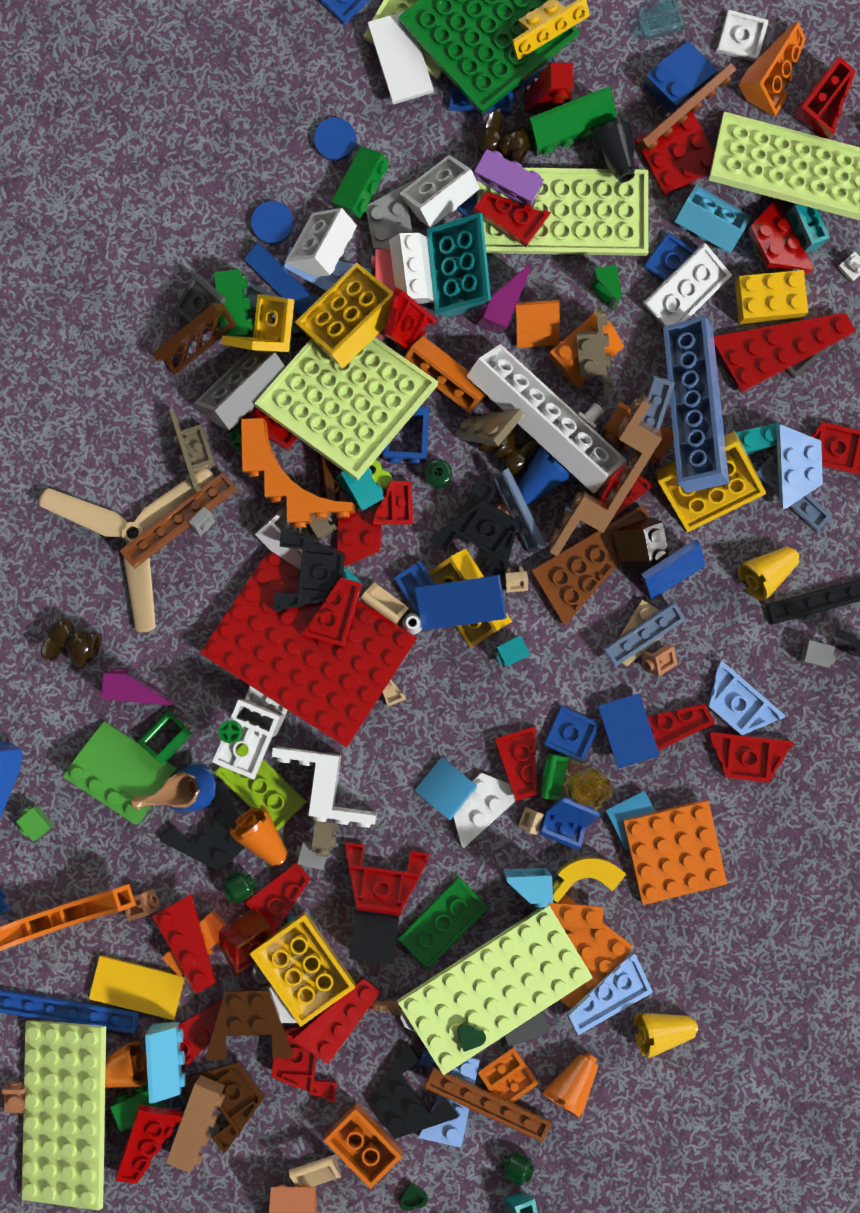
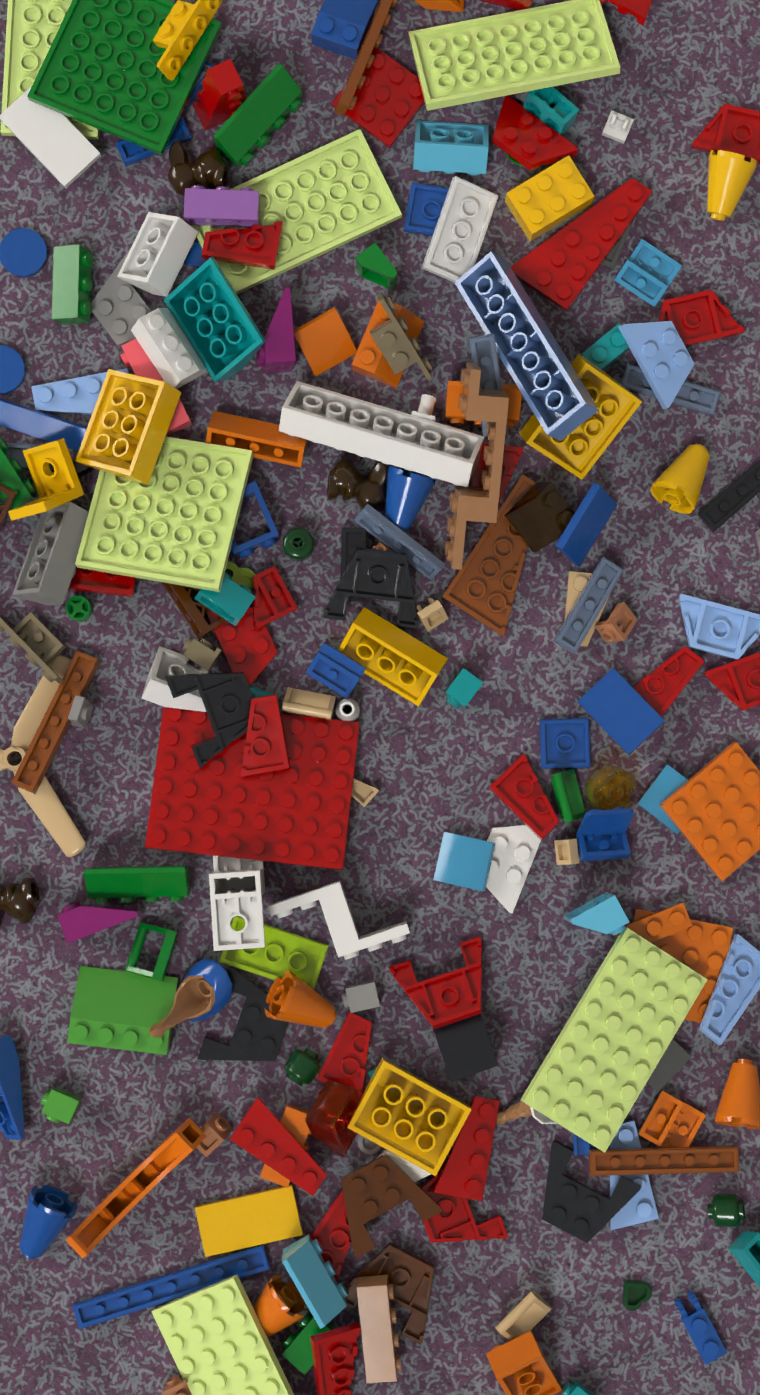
camera: 25 degrees left, 0 degrees up
(181, 677) = (133, 882): none -> green slope
(227, 730) = (213, 912): green wheel -> none
(260, 459) = (109, 619): orange arch -> none
(322, 242) = (62, 365): white slope -> none
(323, 838) = (365, 973): dark tan brick -> none
(363, 1145) = (558, 1265): orange brick -> none
(406, 320) = (189, 403): red wing -> none
(442, 923) = (528, 1000): green tile -> none
(461, 602) = (386, 664): blue tile -> none
(470, 1036) = (613, 1099): dark green tile -> none
(489, 428) = (328, 472): dark tan wing -> none
(586, 867) = (646, 871): yellow arch -> none
(615, 147) = (316, 123): black cone -> none
(820, 394) = (648, 273): none -> dark azure slope

